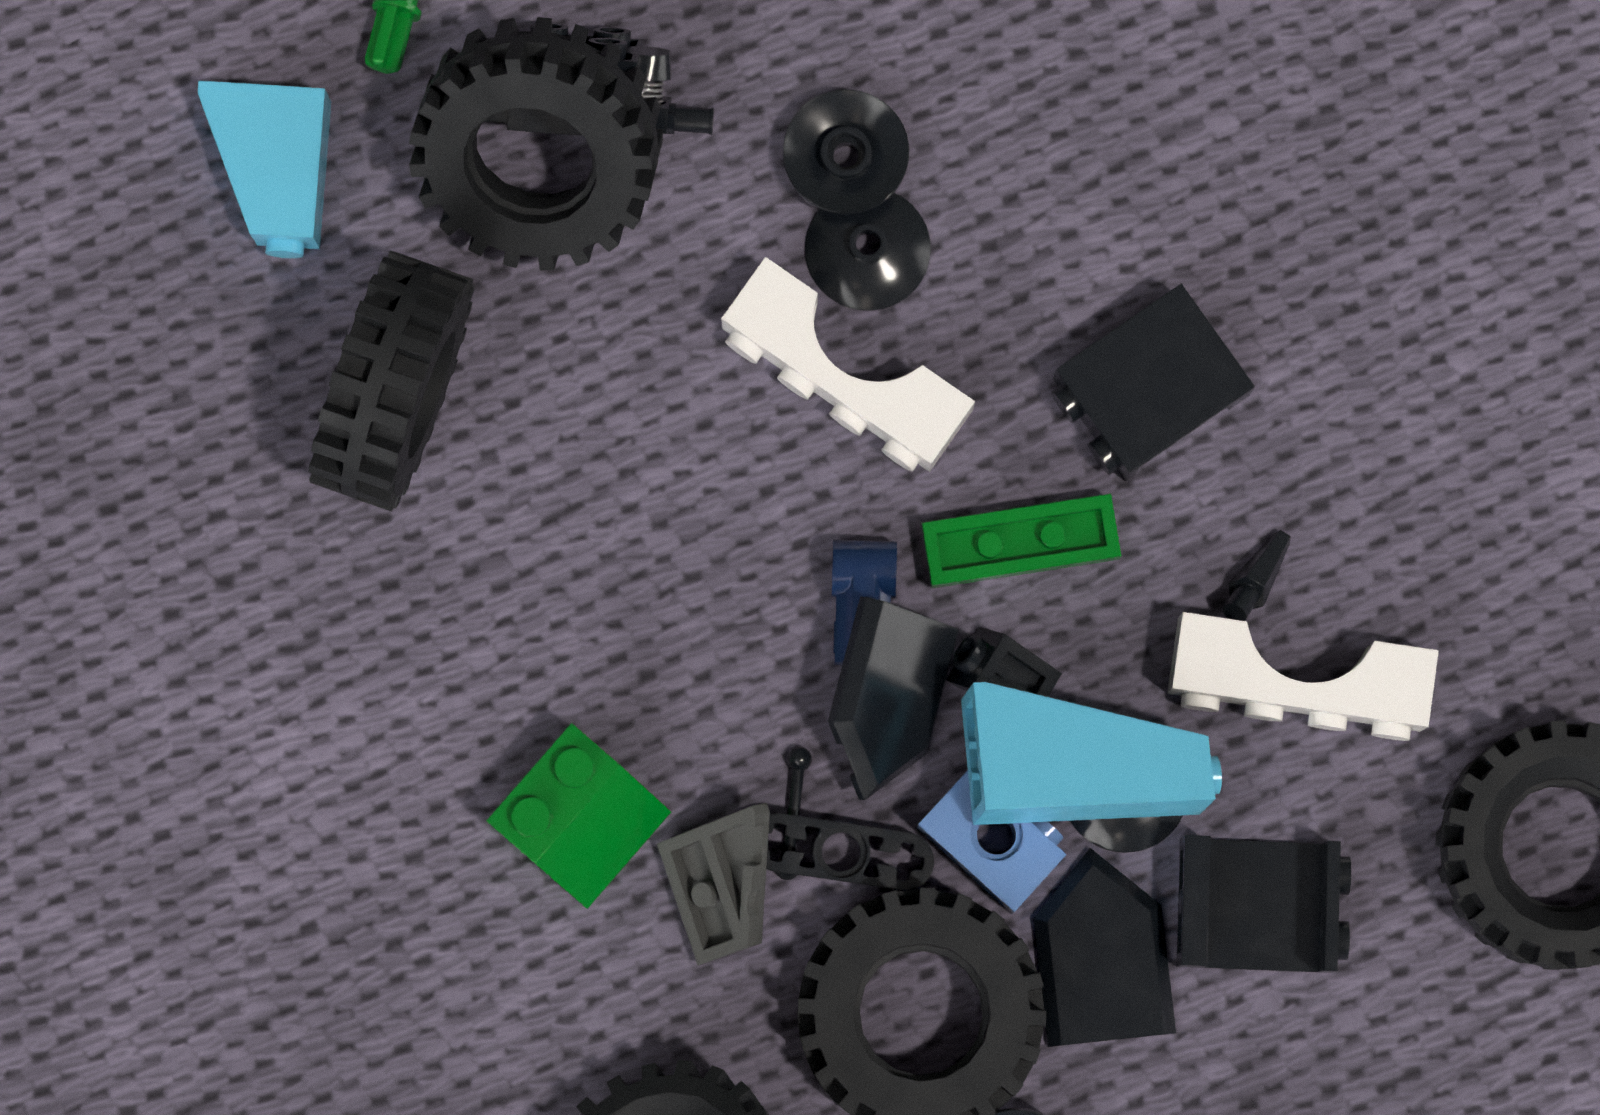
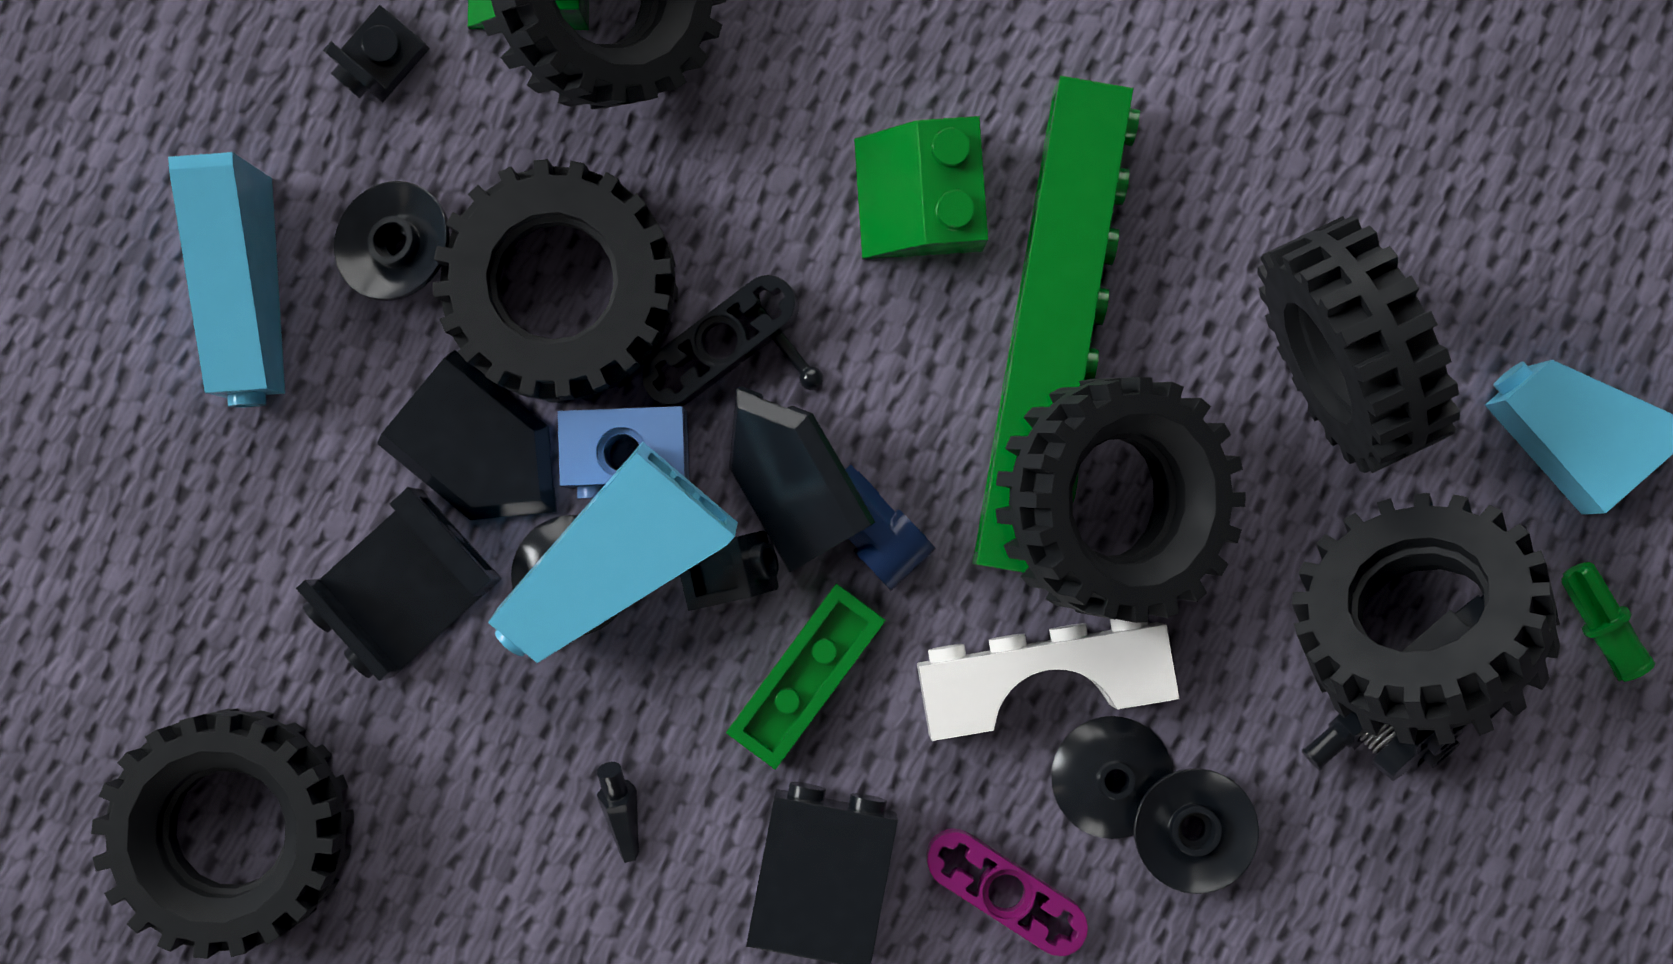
camera: 135 degrees right, 5 degrees up
(583, 615) = (1060, 276): none -> green brick
(634, 376) = (1188, 491): none -> black tyre
(720, 881) = (780, 238): dark grey wing -> none
(1002, 200) = (1036, 930): none -> magenta beam
(1220, 663) = (459, 819): white arch -> none

